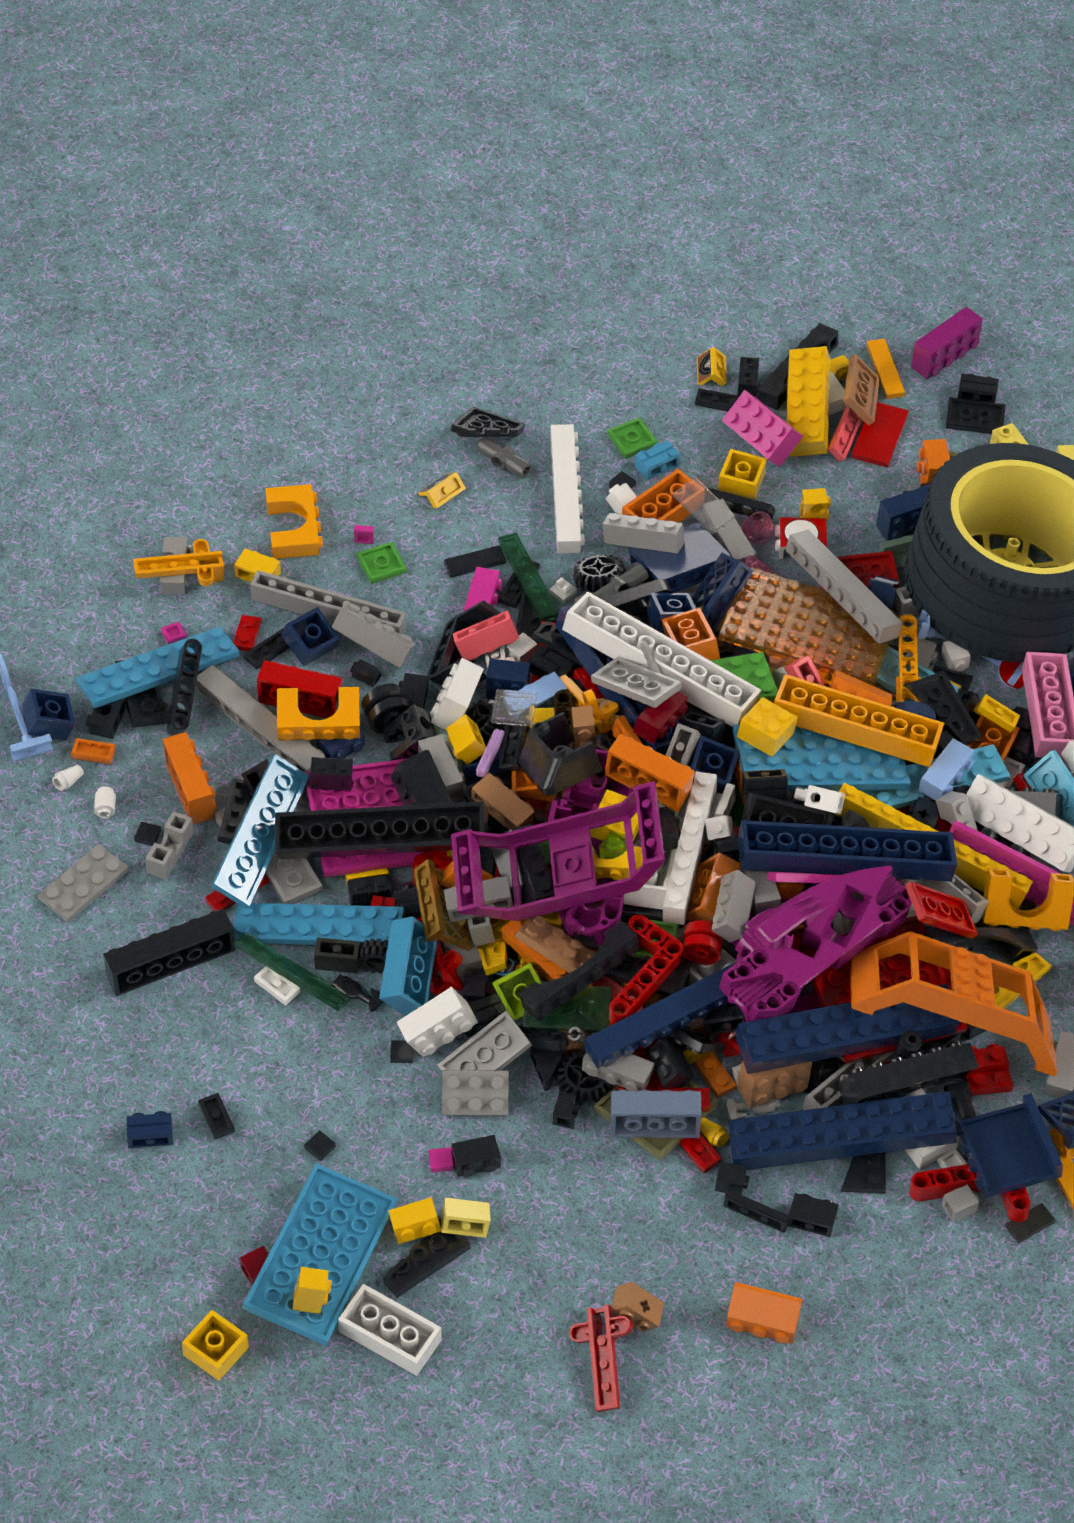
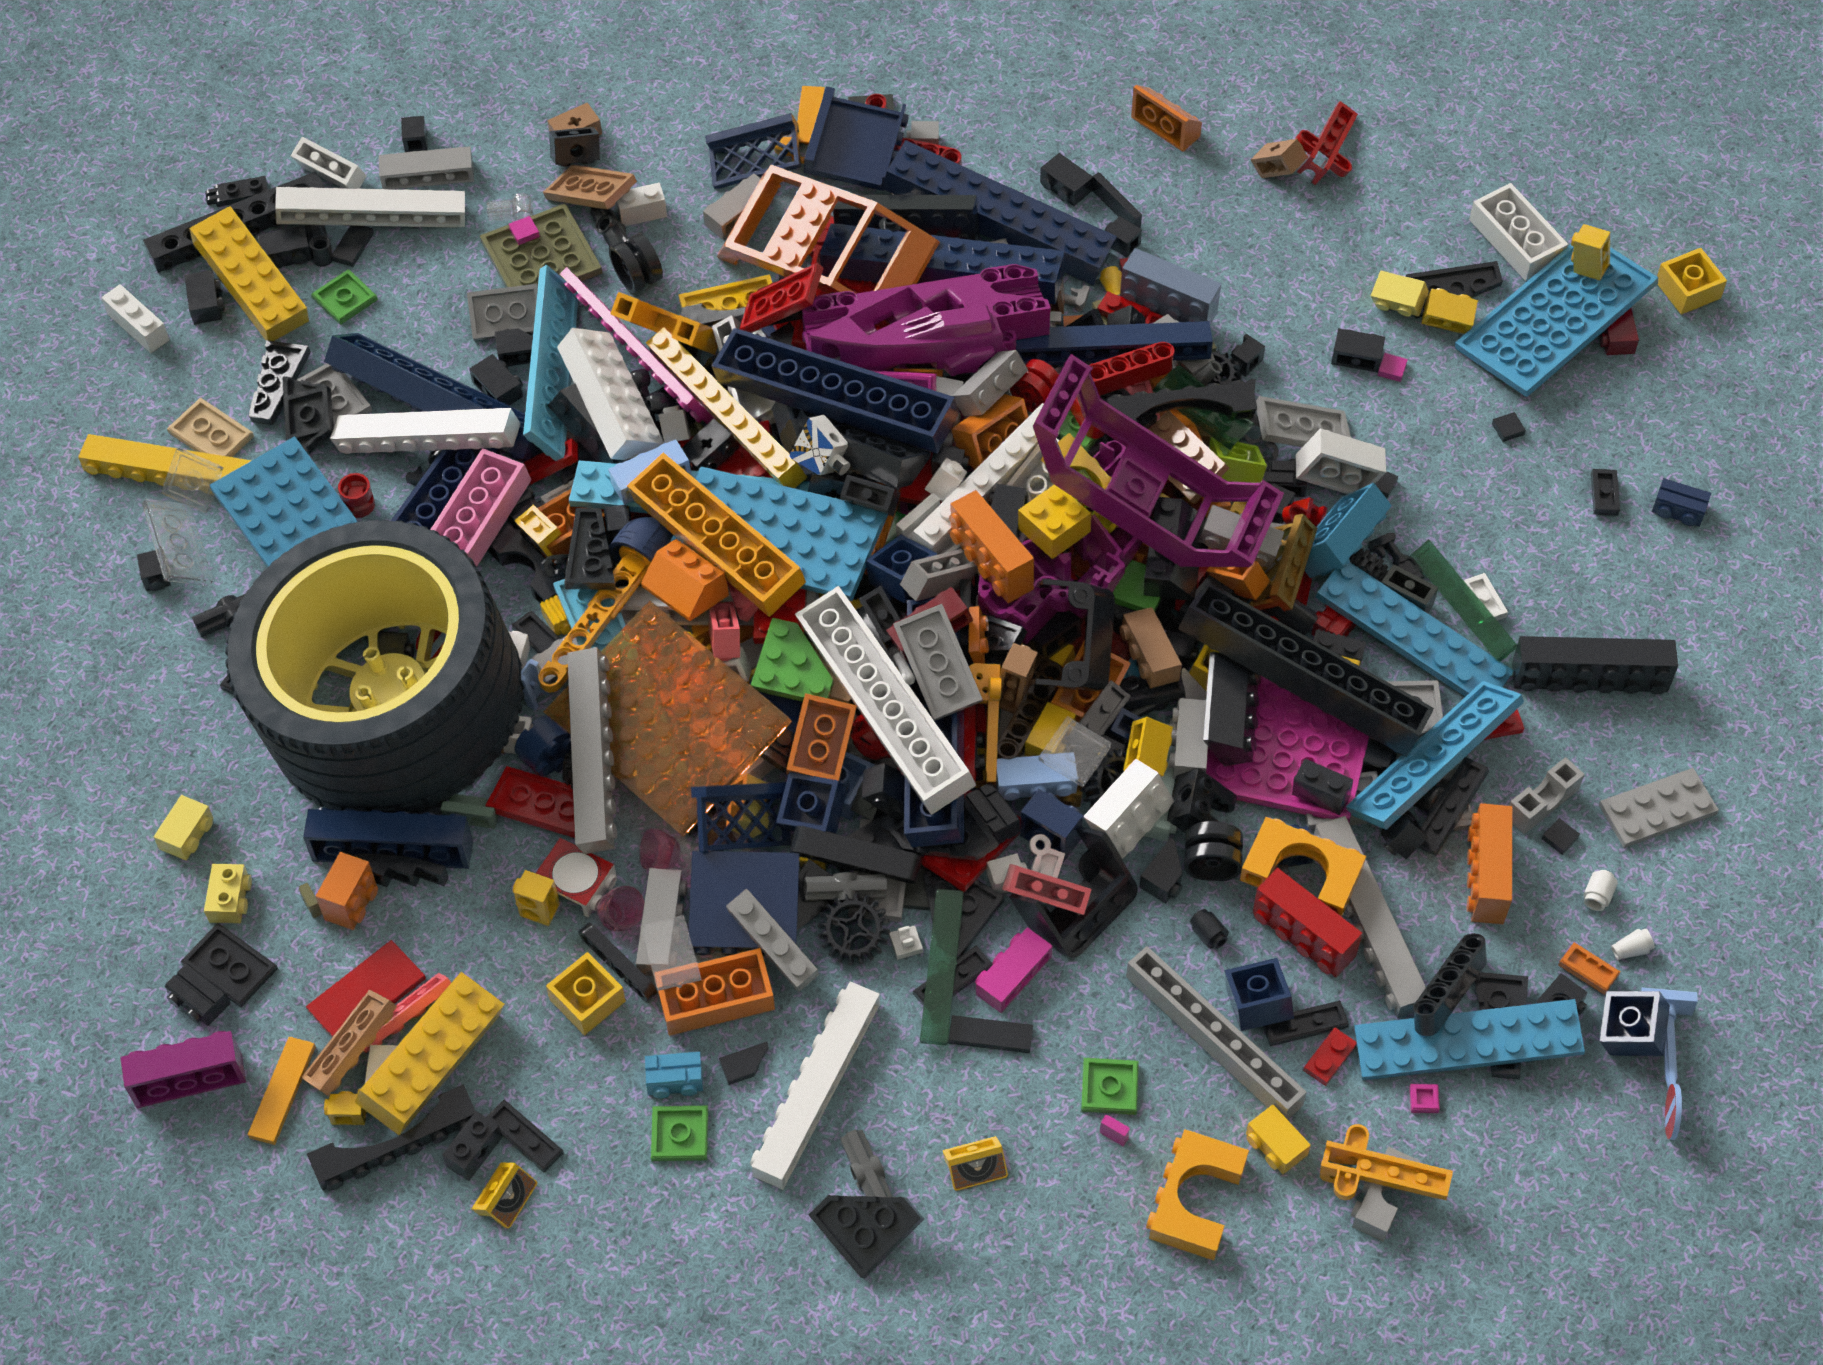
camera: 150 degrees left, 5 degrees up
(373, 635) = (1182, 954): light grey brick -> none
(475, 1092) = (1330, 401): light grey plate -> none
(490, 753) = (1132, 714): lavender axle -> none
(619, 497) = (758, 1027): white brick -> none
(762, 428) = (519, 1035): dark pink brick -> none
(767, 727) = (823, 556): yellow brick -> none

